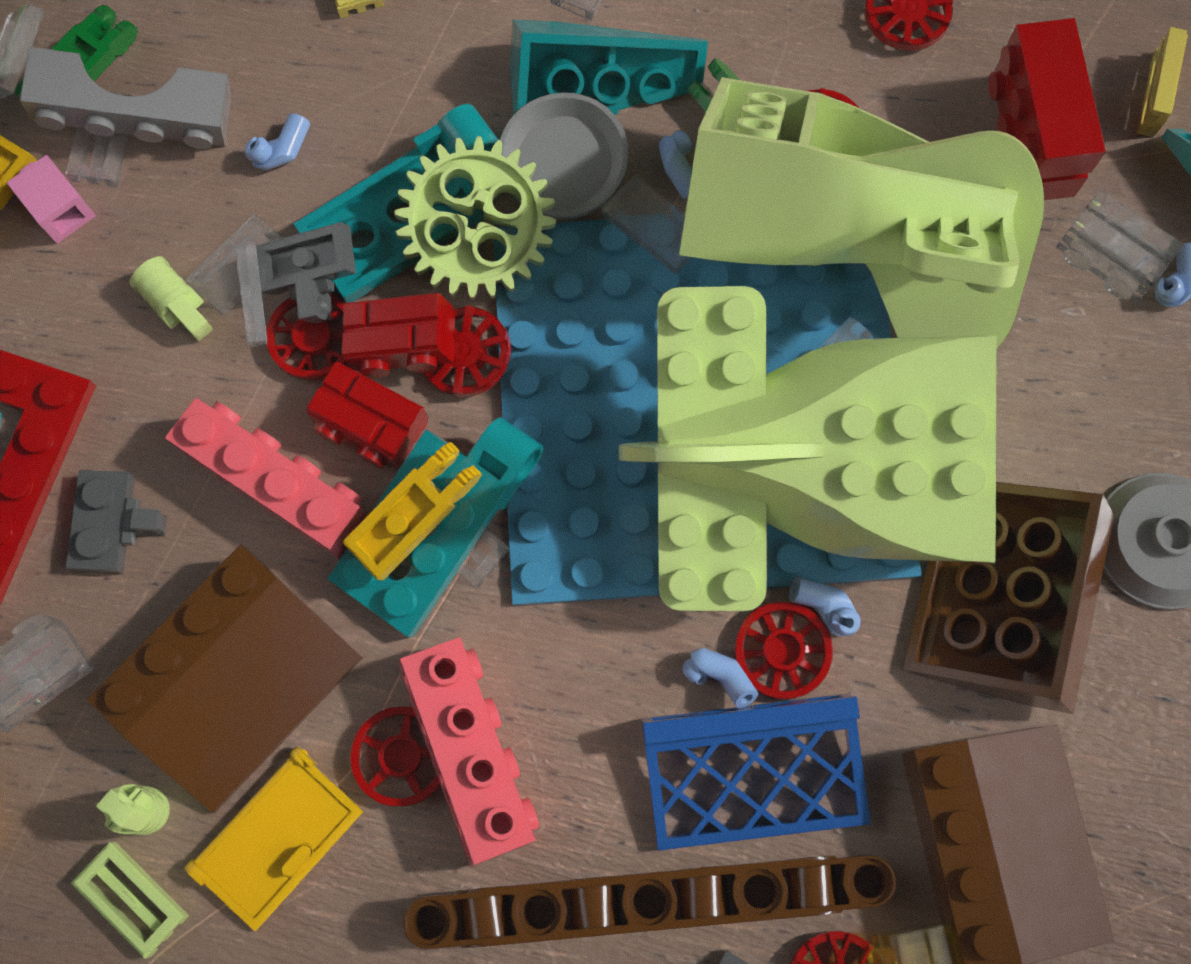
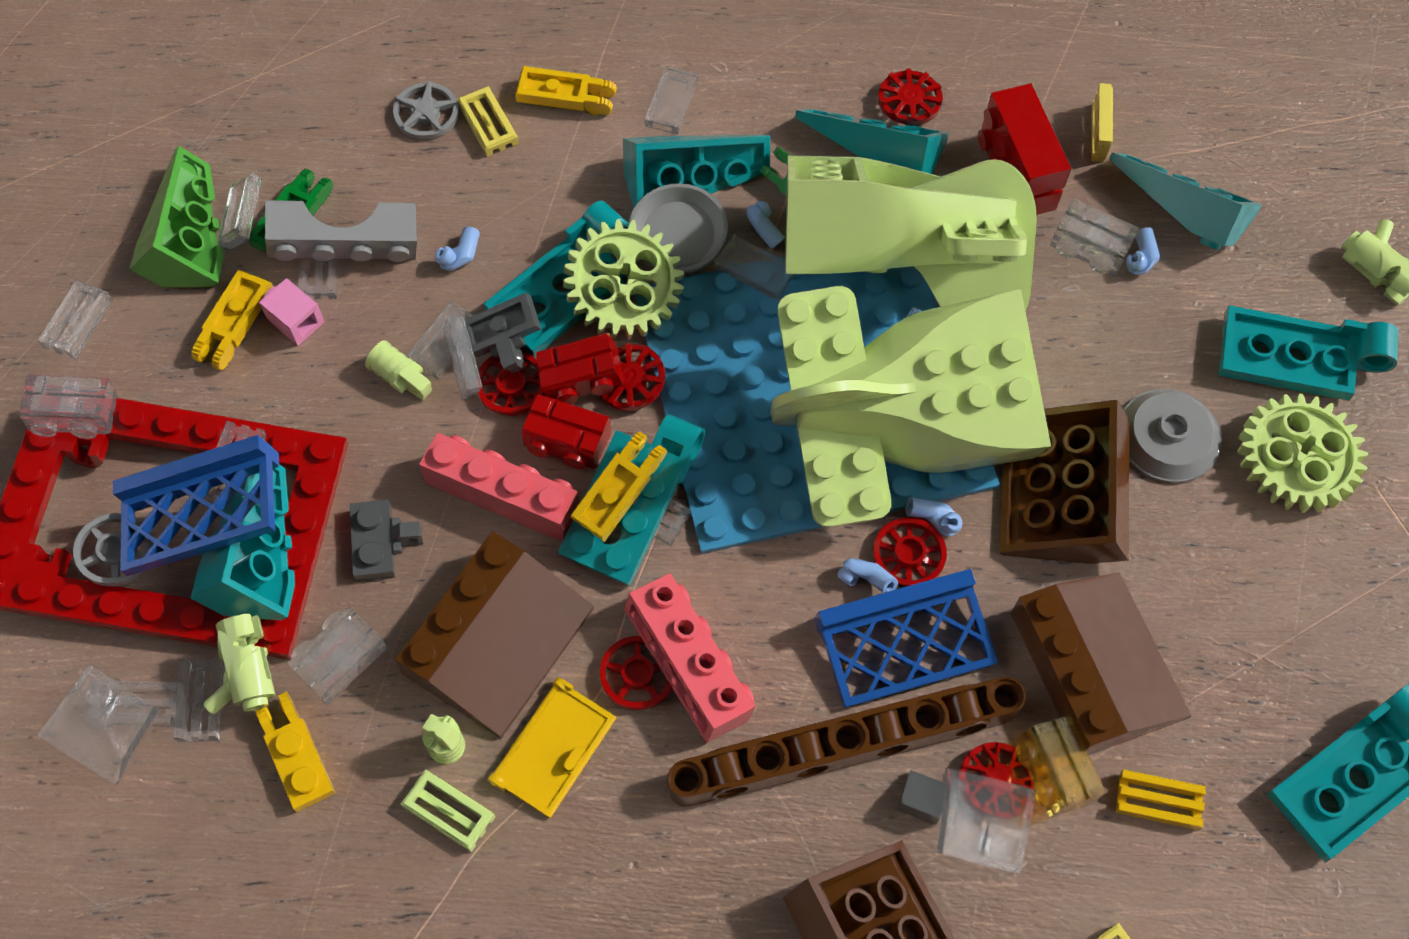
camera: 15 degrees left, 10 degrees down
(879, 81) = (870, 139): none -> teal wedge

